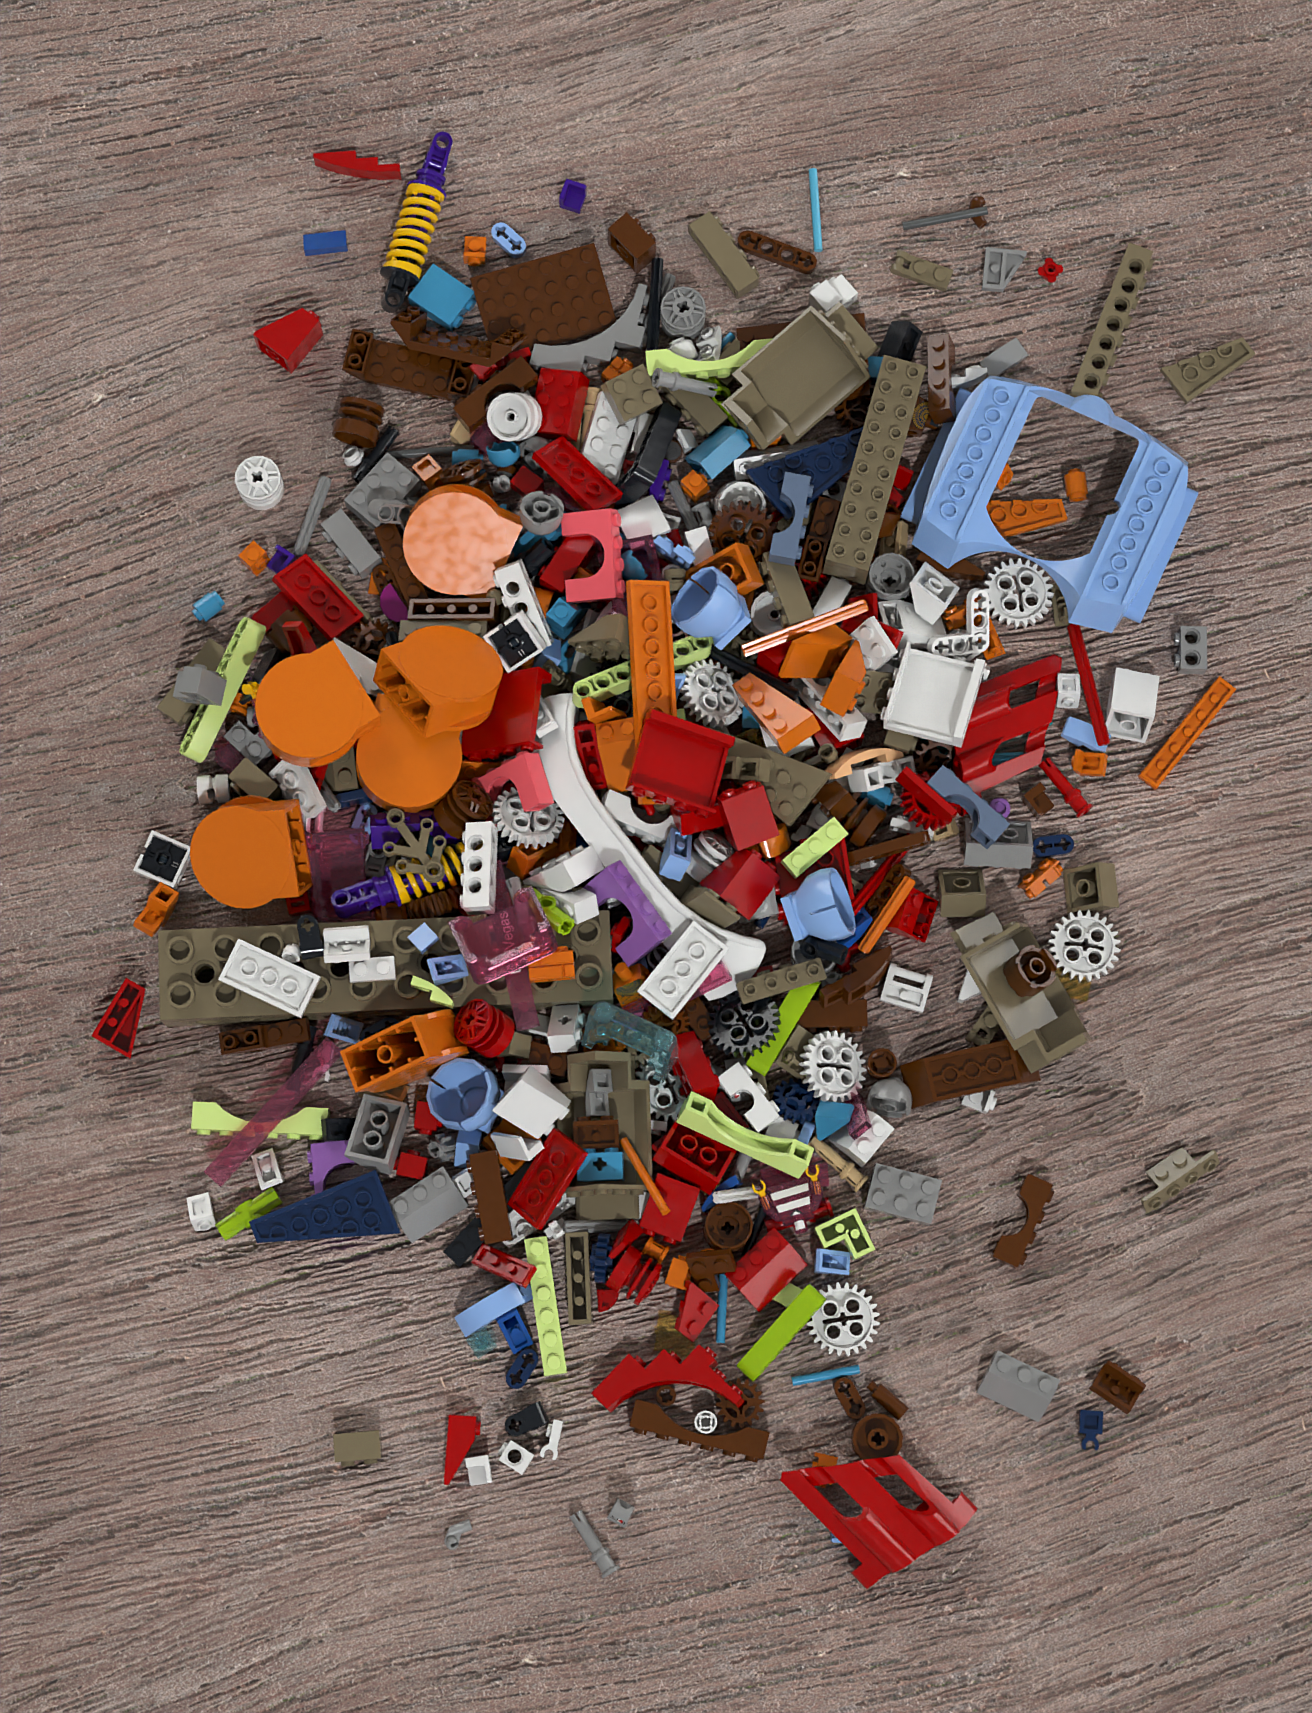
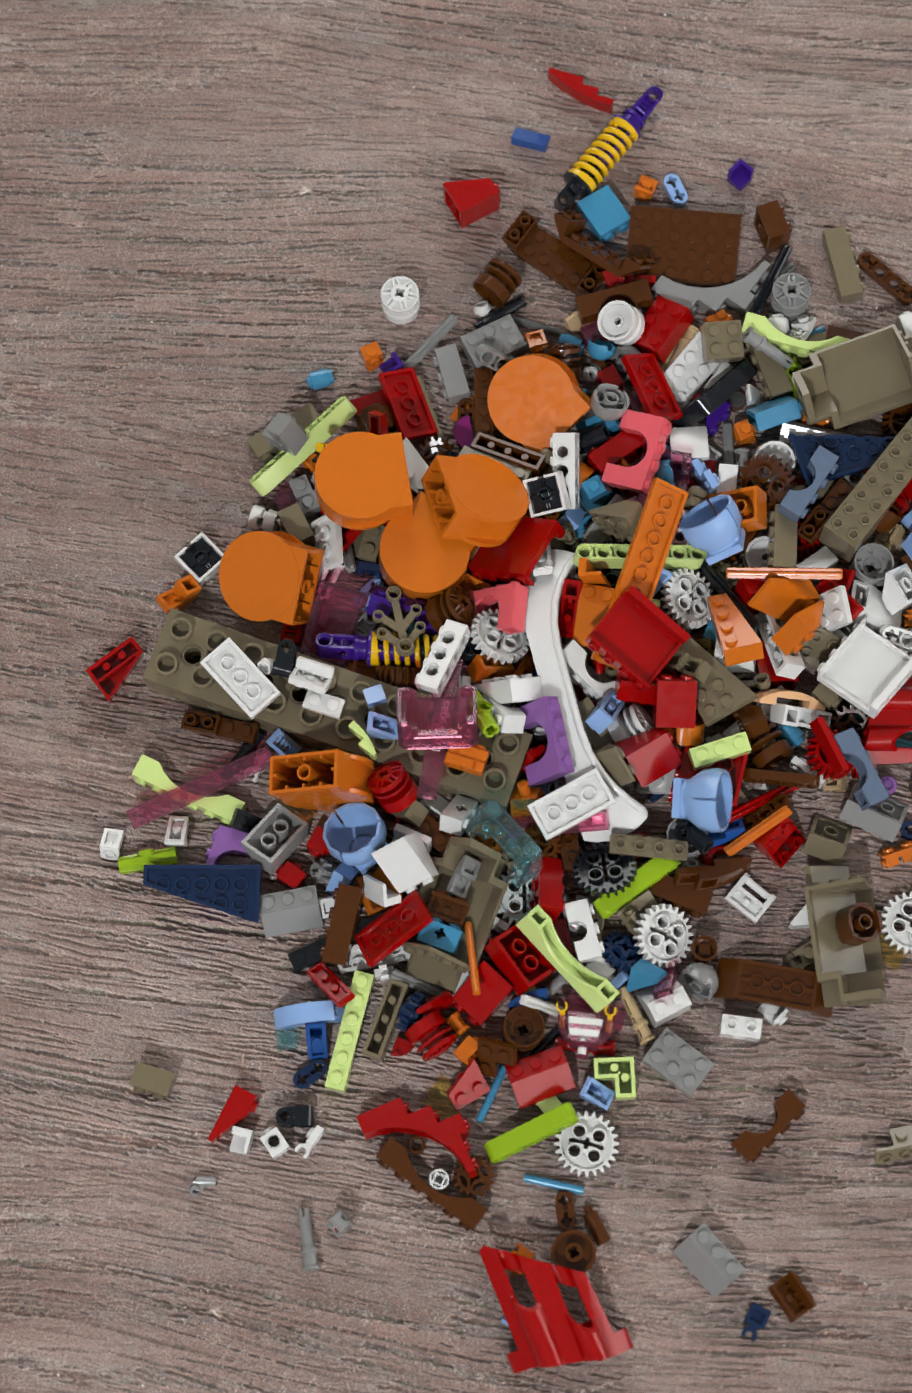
camera: 30 degrees right, 5 degrees down
(952, 1130) = (740, 1027): none -> white brick

